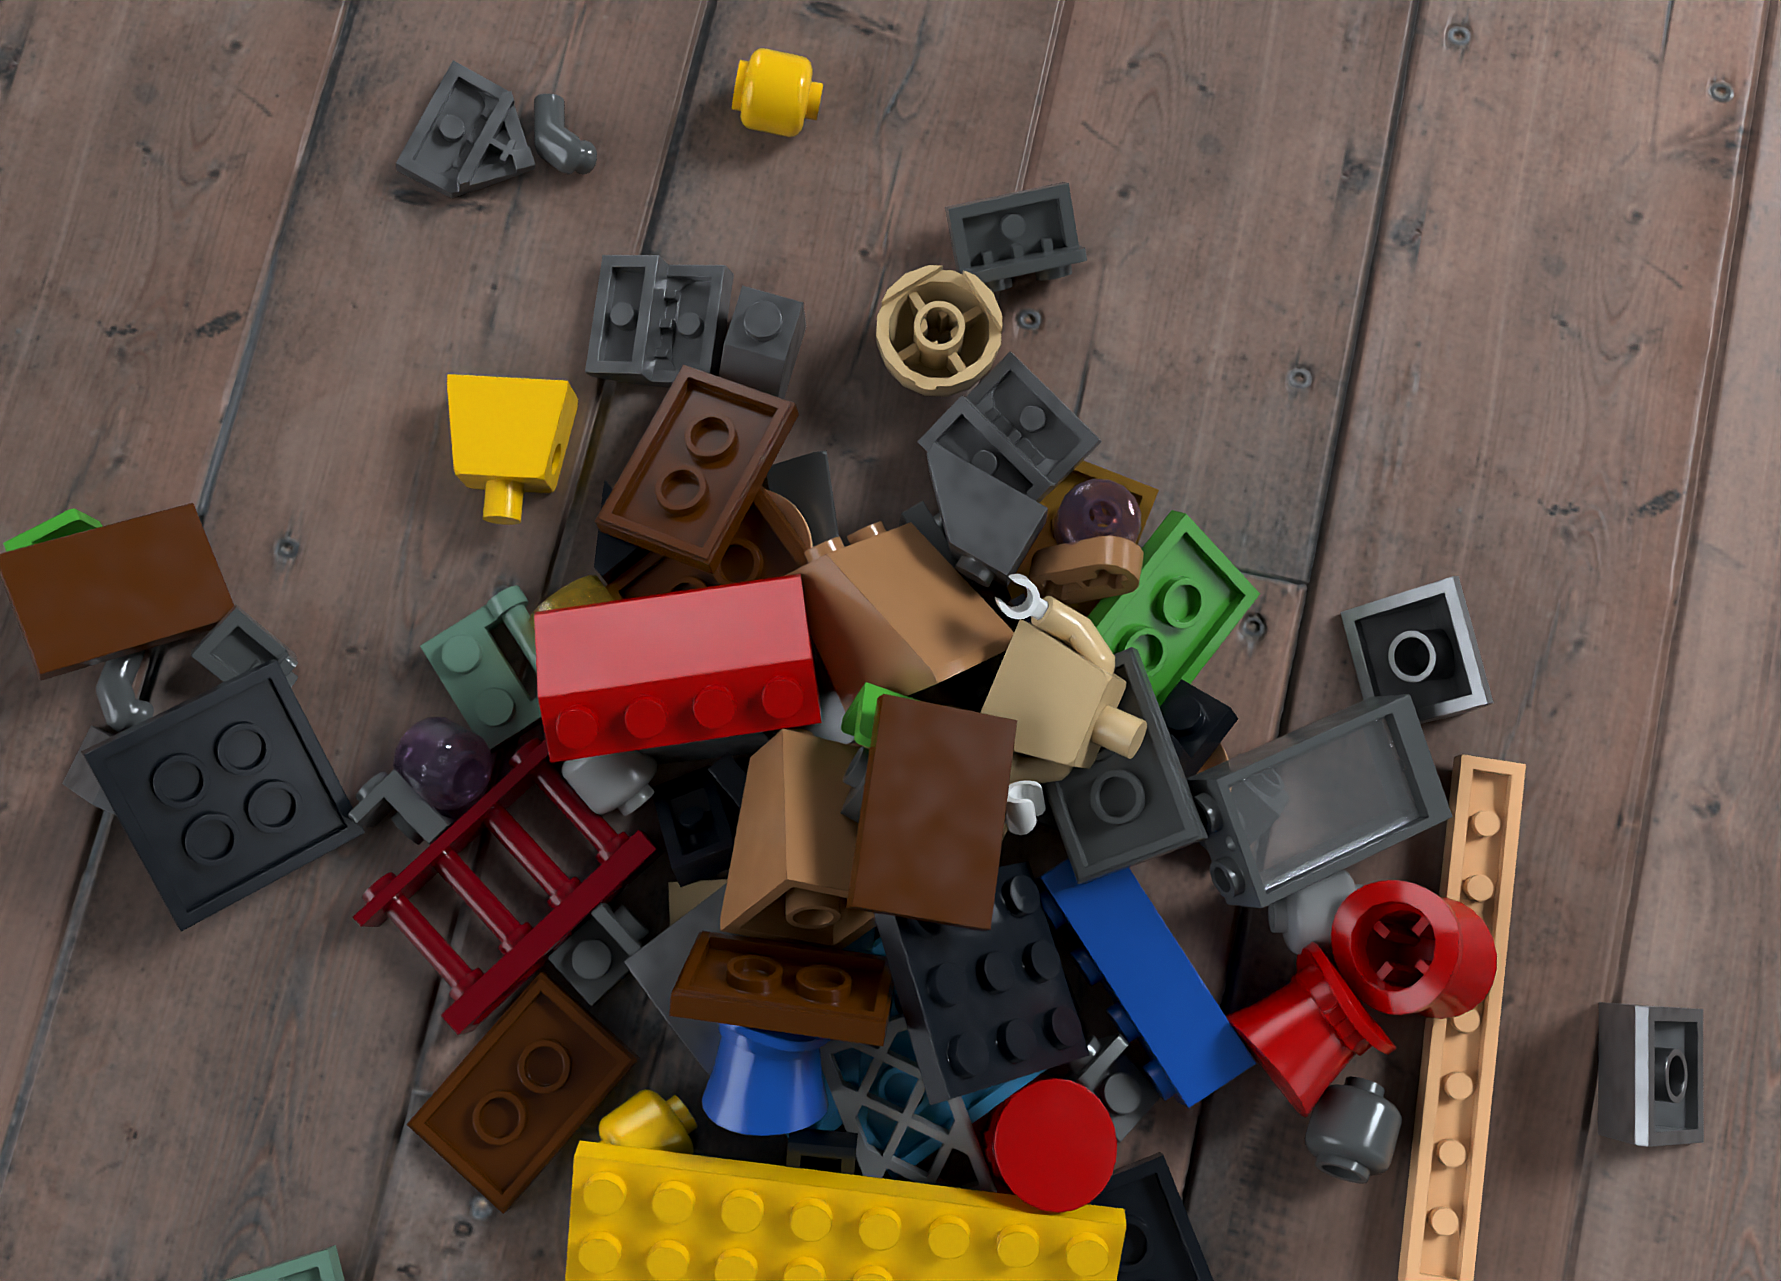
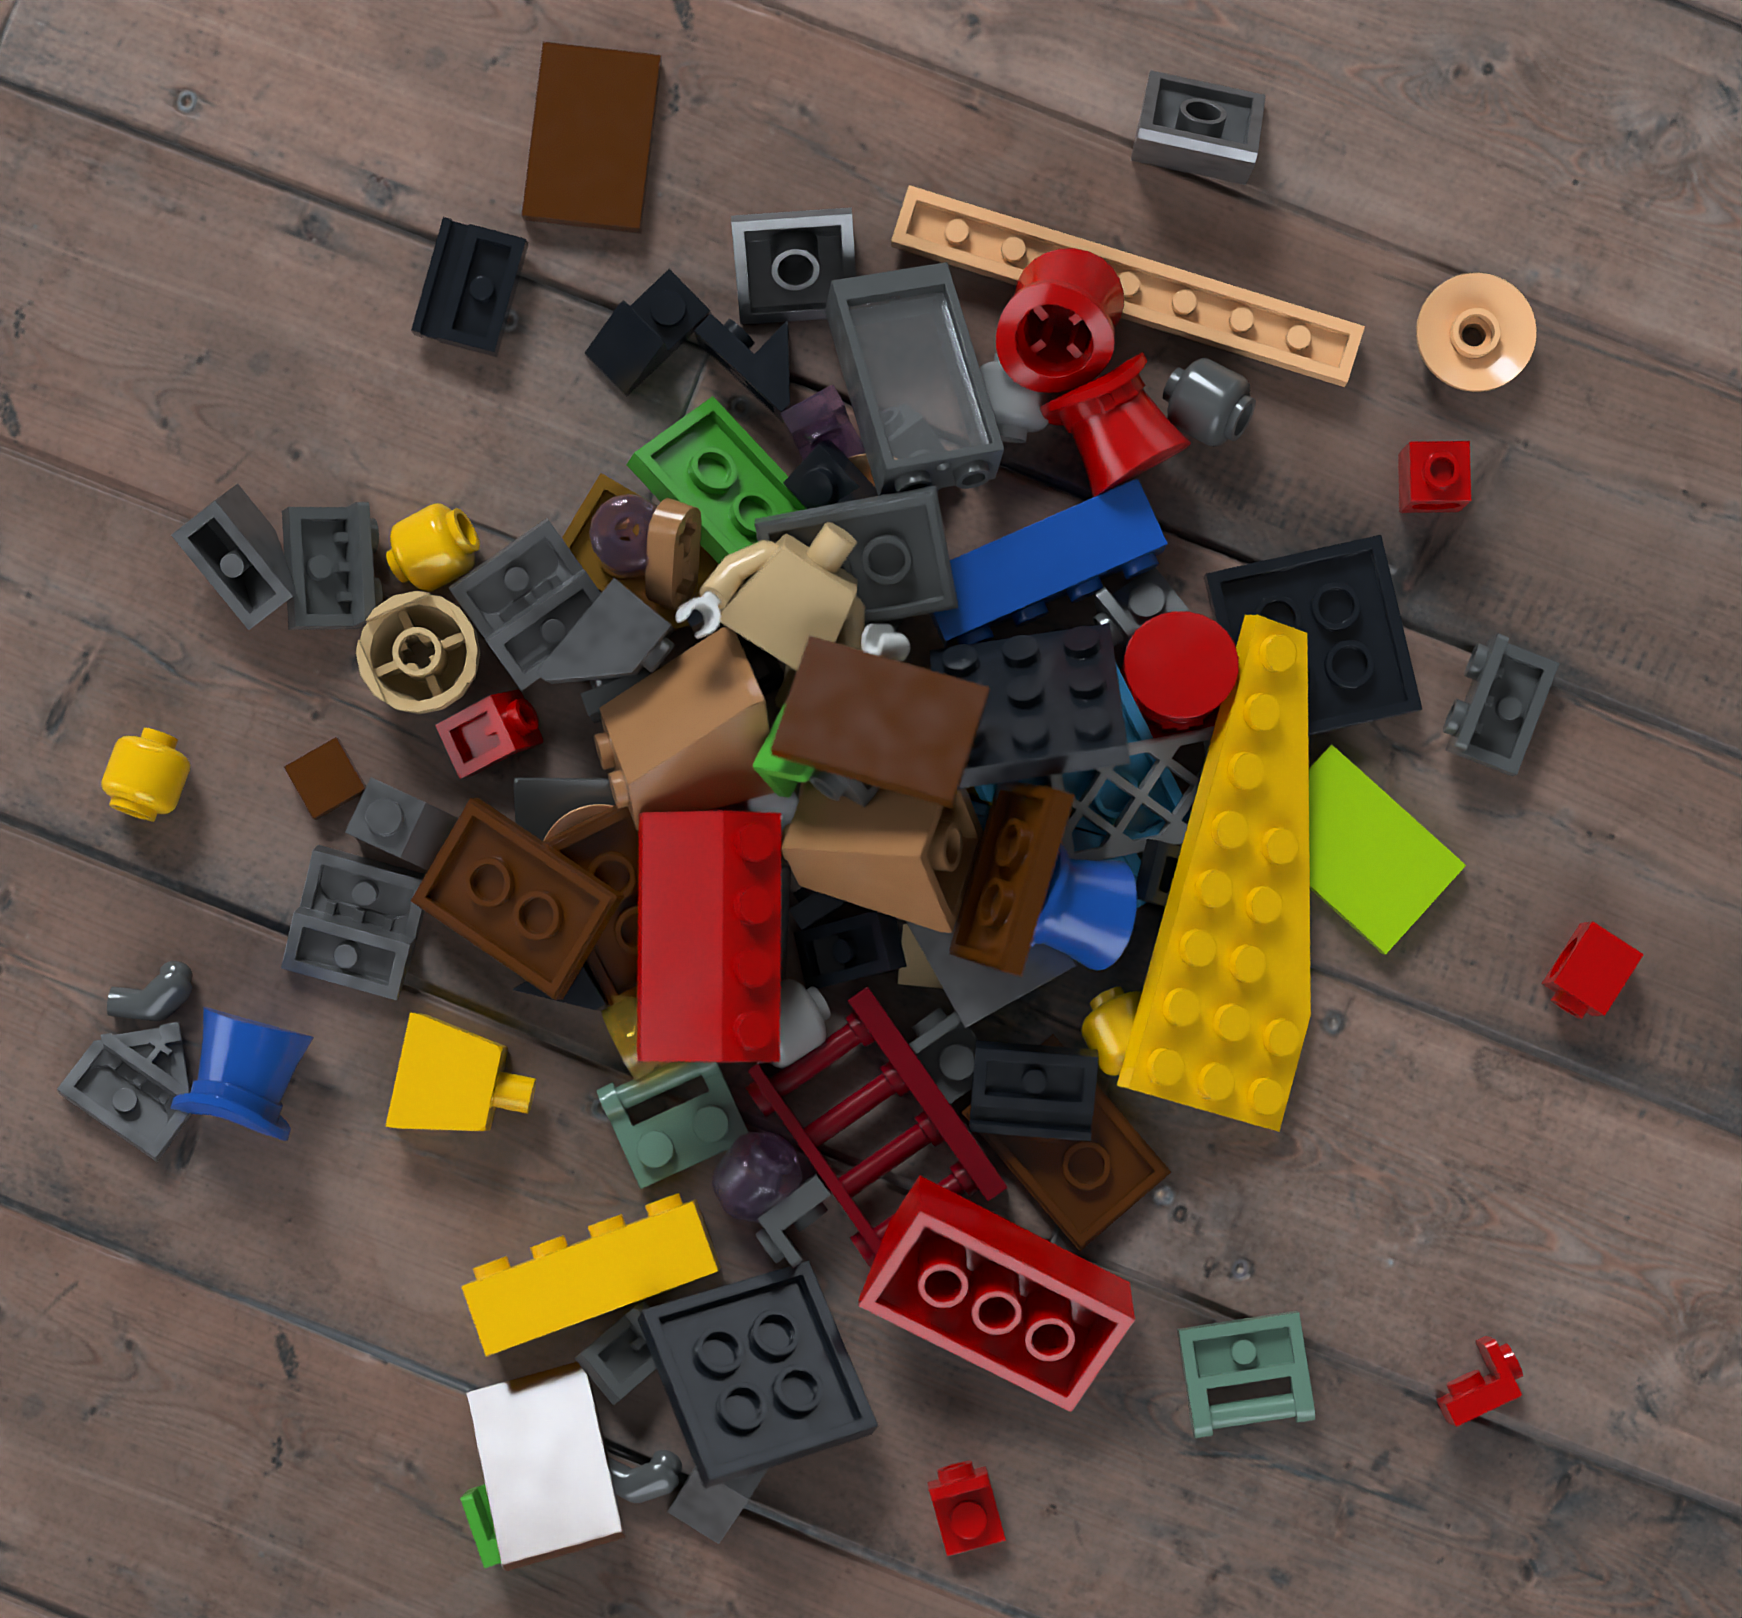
camera: 80 degrees left, 5 degrees up
(120, 1040) = (965, 1508): none -> red bracket
(320, 608) = (590, 1276): none -> yellow brick
(340, 1042) = (997, 1294): none -> red slope
(486, 229) = (244, 1072): none -> blue hat
(568, 1048) = (1033, 1090): none -> black plate
(801, 268) = (325, 778): none -> reddish brown tile
(872, 422) = (489, 732): none -> red bracket
(1012, 141) = (238, 556): none -> flat silver slope
(1052, 334) = (432, 547): none -> yellow head
(1258, 707) = (822, 418): none -> clear purple bracket
(1295, 641) = (762, 373): none -> black slope
(1311, 516) = (646, 332): none -> black slope
(1327, 331) = (470, 287): none -> black plate
(1506, 430) = (591, 137): none -> reddish brown tile

